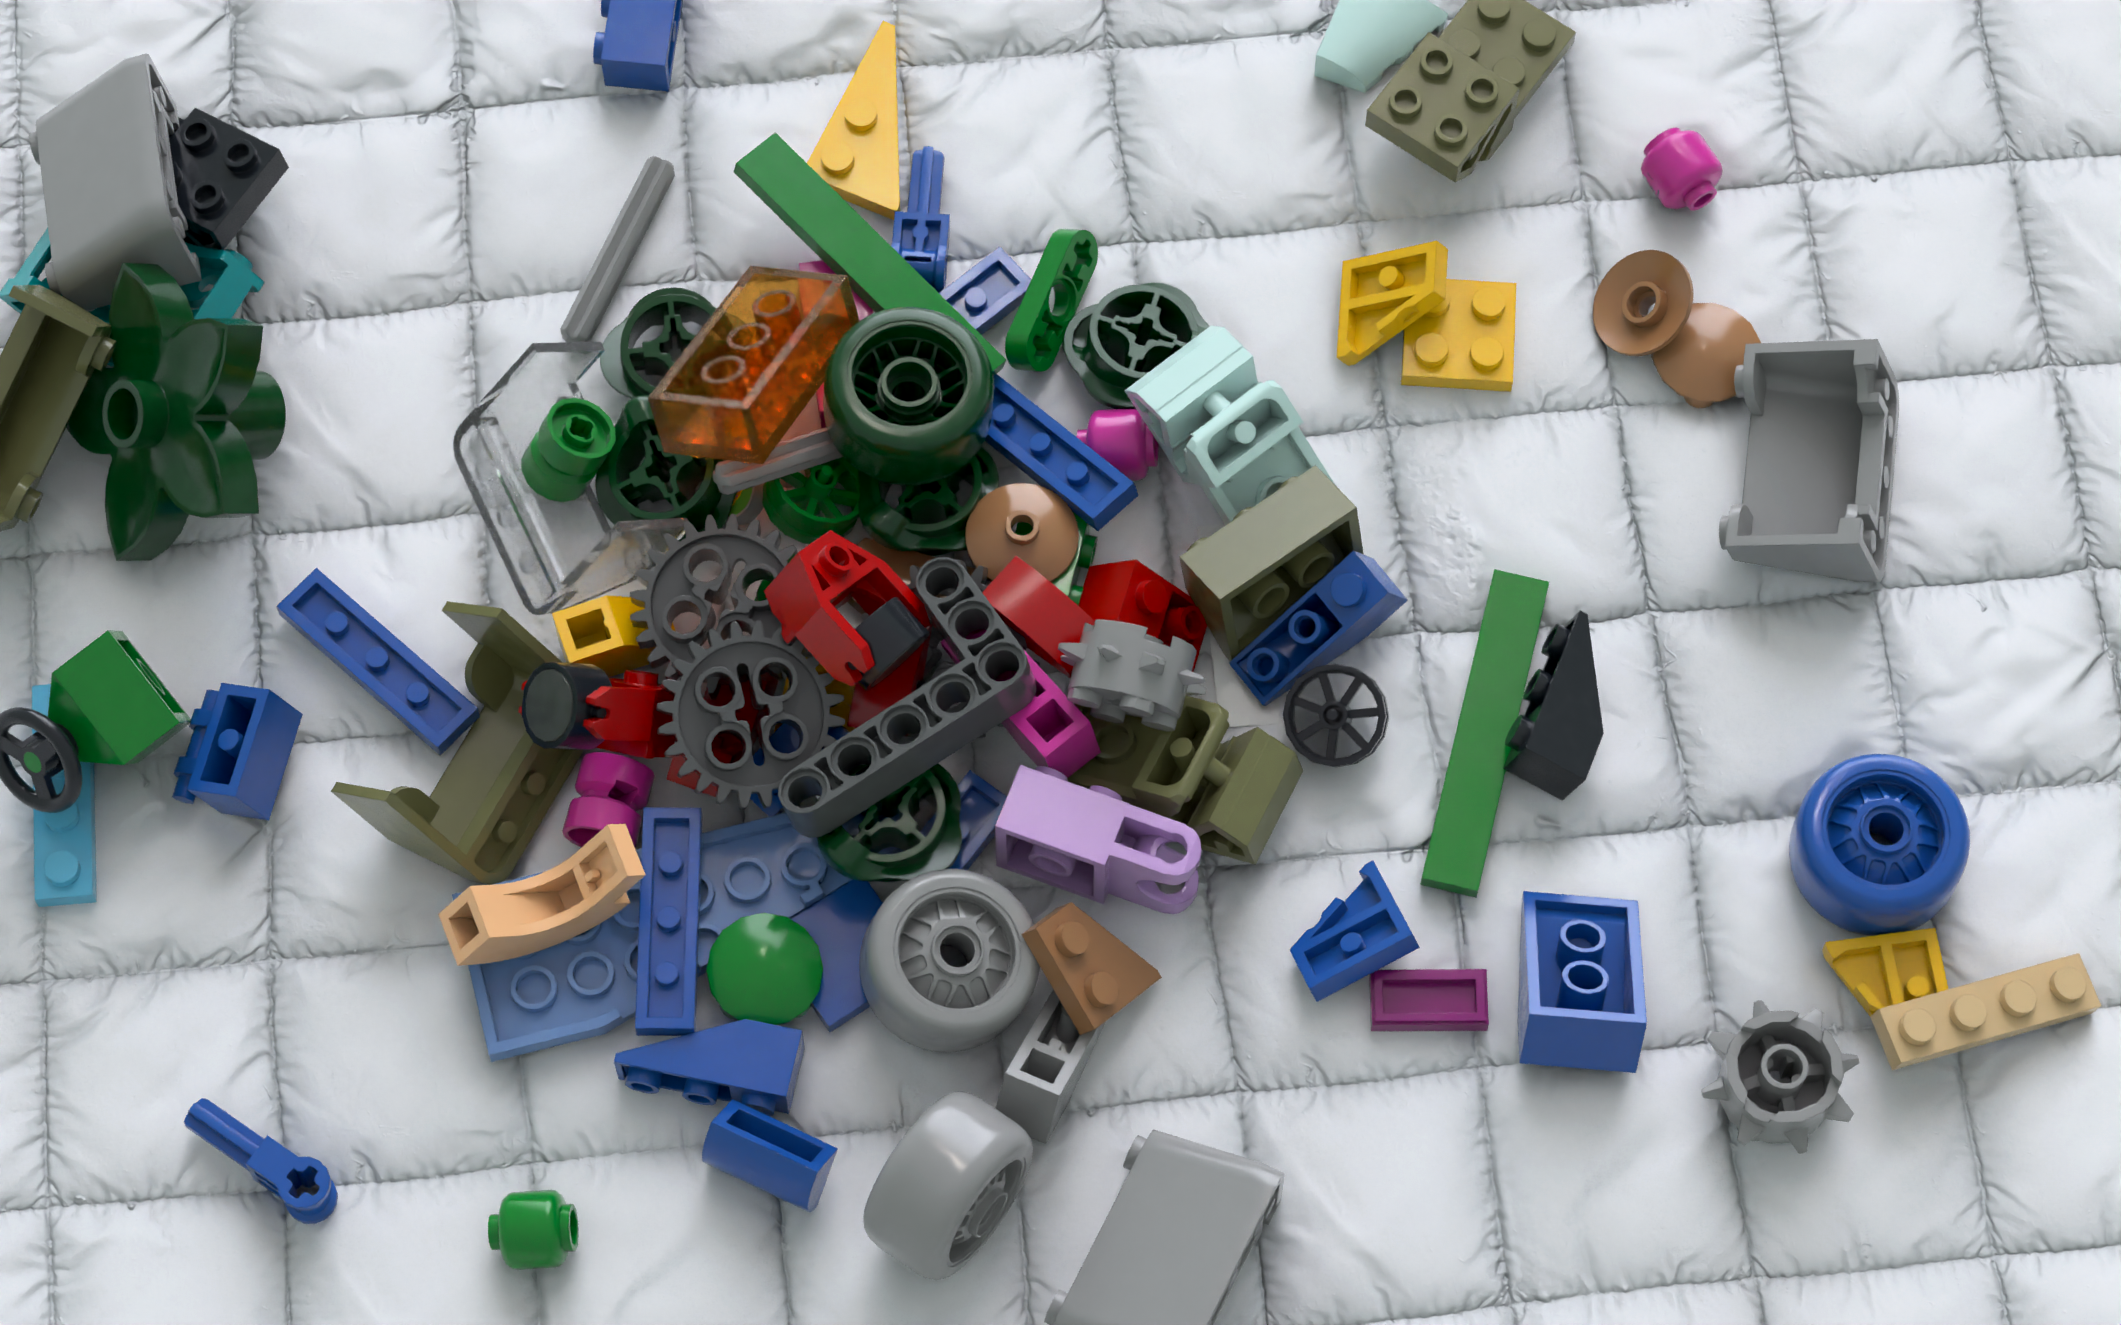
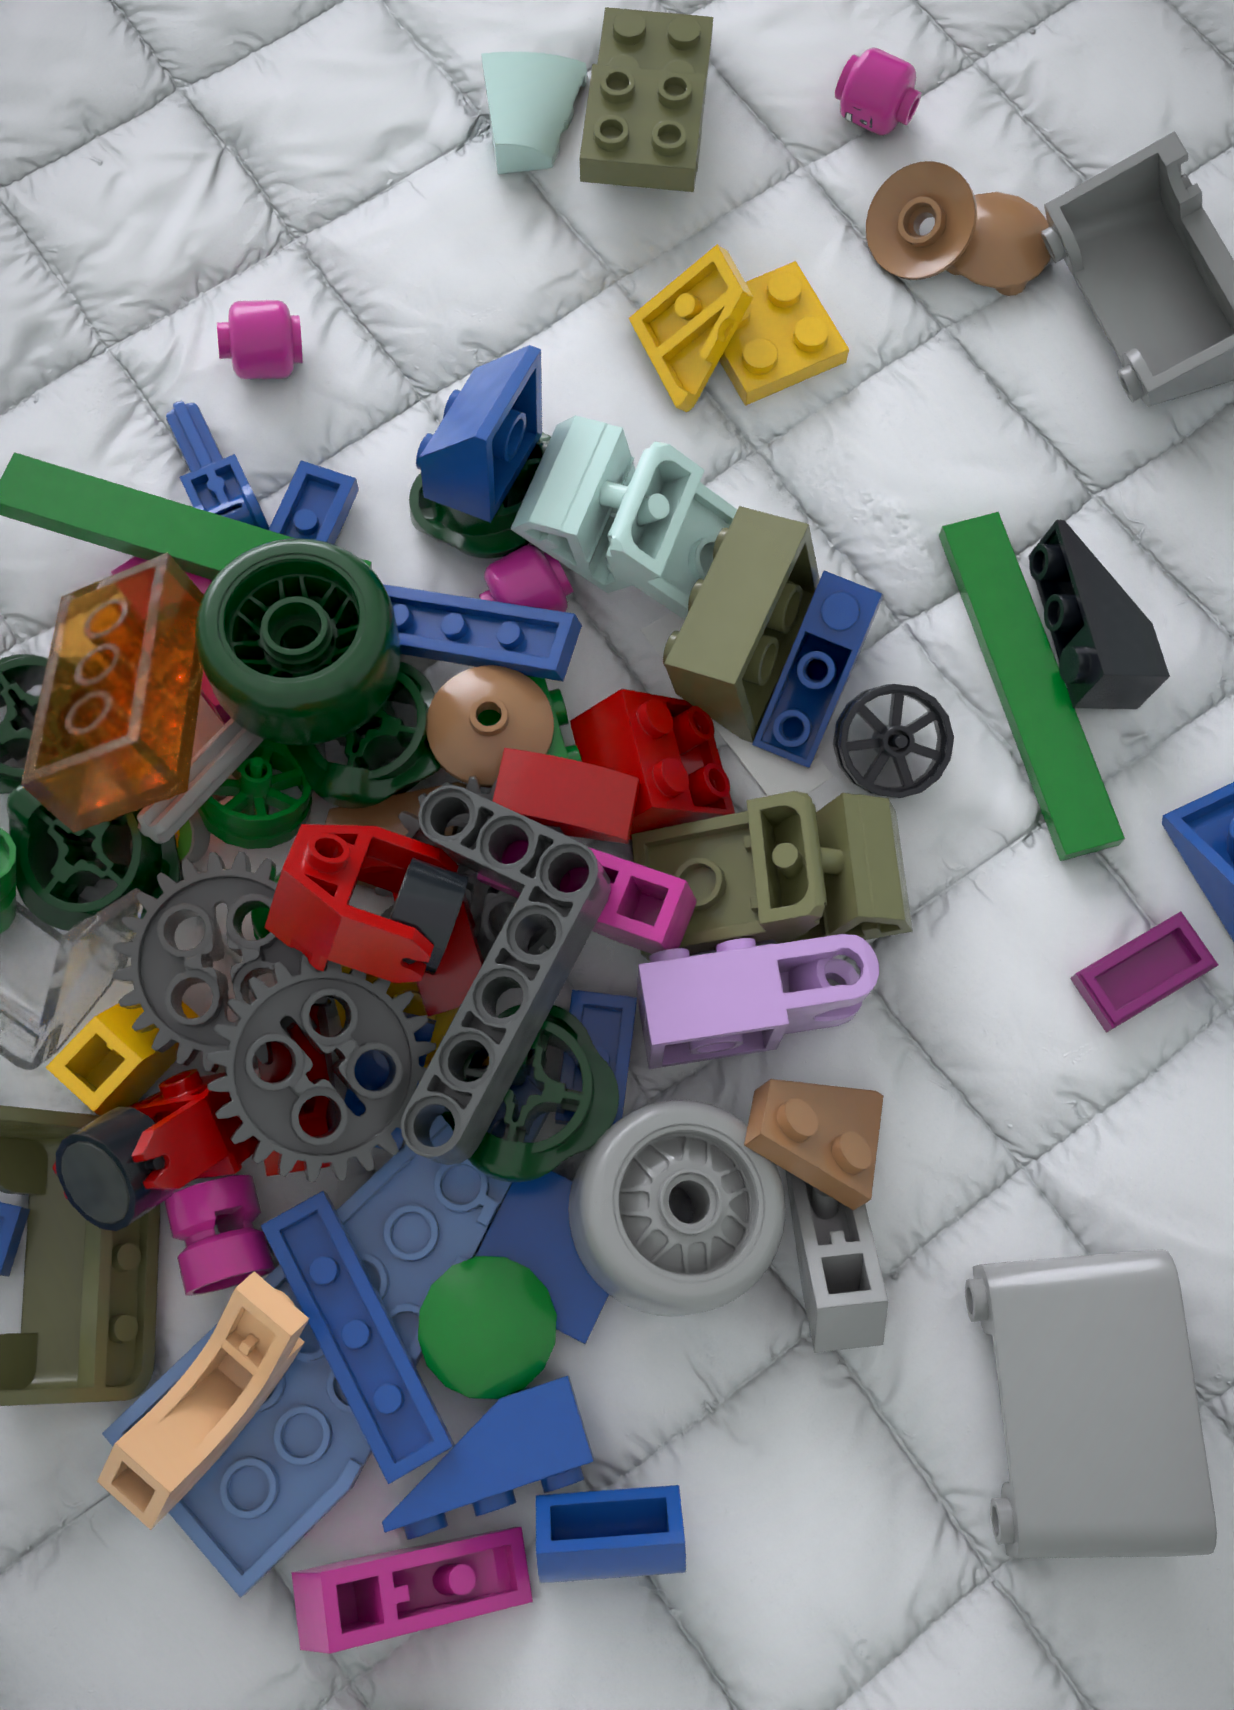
camera: 30 degrees left, 5 degrees up
(608, 1116) = (409, 1590): none -> dark pink slope
(861, 139) = (105, 422): yellow wing -> none
(947, 1185) = (833, 1474): light grey wheel -> none
(1025, 127) = (260, 339): none -> dark pink head
(1036, 331) = (379, 486): green beam -> none
(1131, 673) = (696, 806): light grey brick -> none
(1146, 307) = (485, 435): none -> blue slope
(1353, 937) = (1044, 949): blue wing -> none

